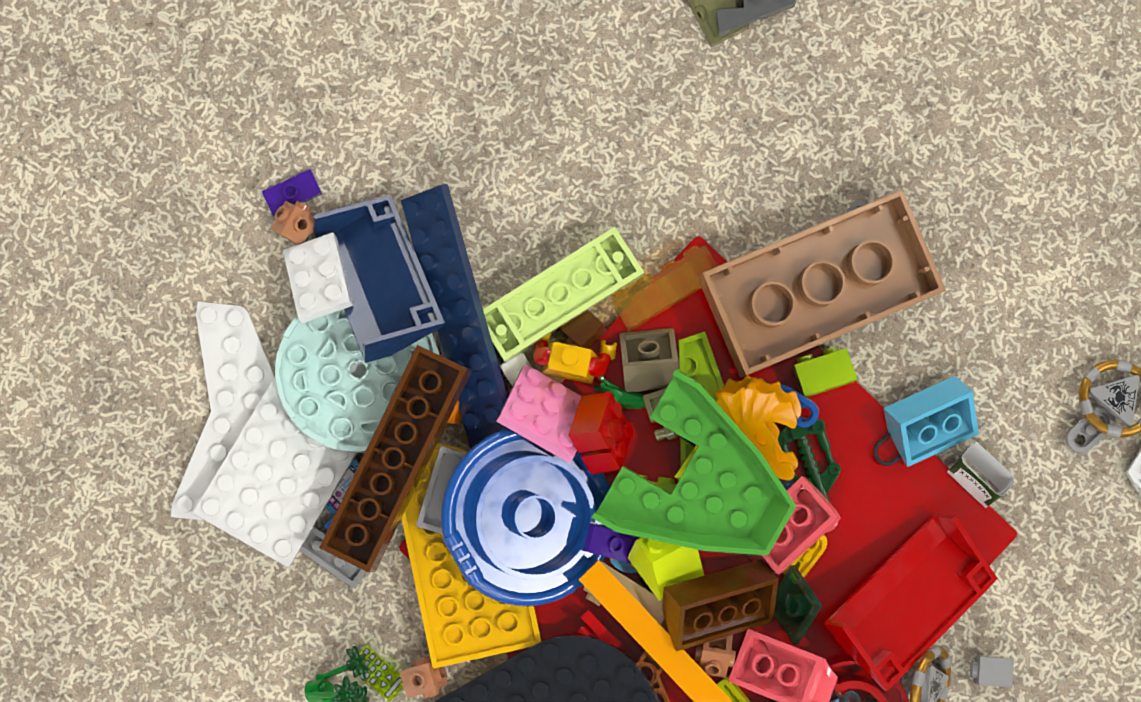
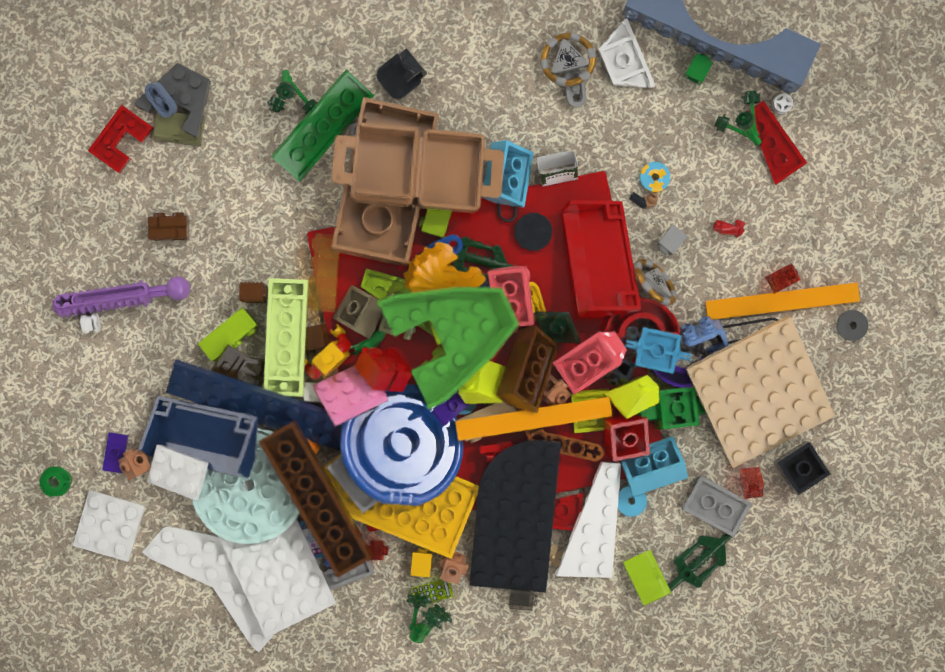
camera: 65 degrees left, 5 degrees up
(202, 243) = (109, 525): none -> white plate
(203, 146) = (50, 485): none -> green piece
(384, 574) = (378, 549): none -> clear red gear
(403, 636) = (421, 563): none -> yellow brick
(421, 62) = (90, 323): none -> white wheel
(473, 73) = (118, 297): none -> medium lavender gear
(489, 253) = (233, 362): none -> dark brown plate
(516, 228) = (229, 332): none -> lime brick
(585, 221) = (253, 292): none -> reddish brown brick
(592, 74) = (168, 227): none -> reddish brown brick
(833, 166) = (321, 126): none -> green plate
(845, 96) = (286, 91): none -> dark green plant
(881, 332) = (398, 165): none -> medium nougat piece
(885, 498) = (533, 231): none -> black tile
(959, 216) = (401, 74): none -> black piece
(1014, 606) = (644, 202): none -> arm
(1042, 605) = (663, 177): none -> medium azure piece

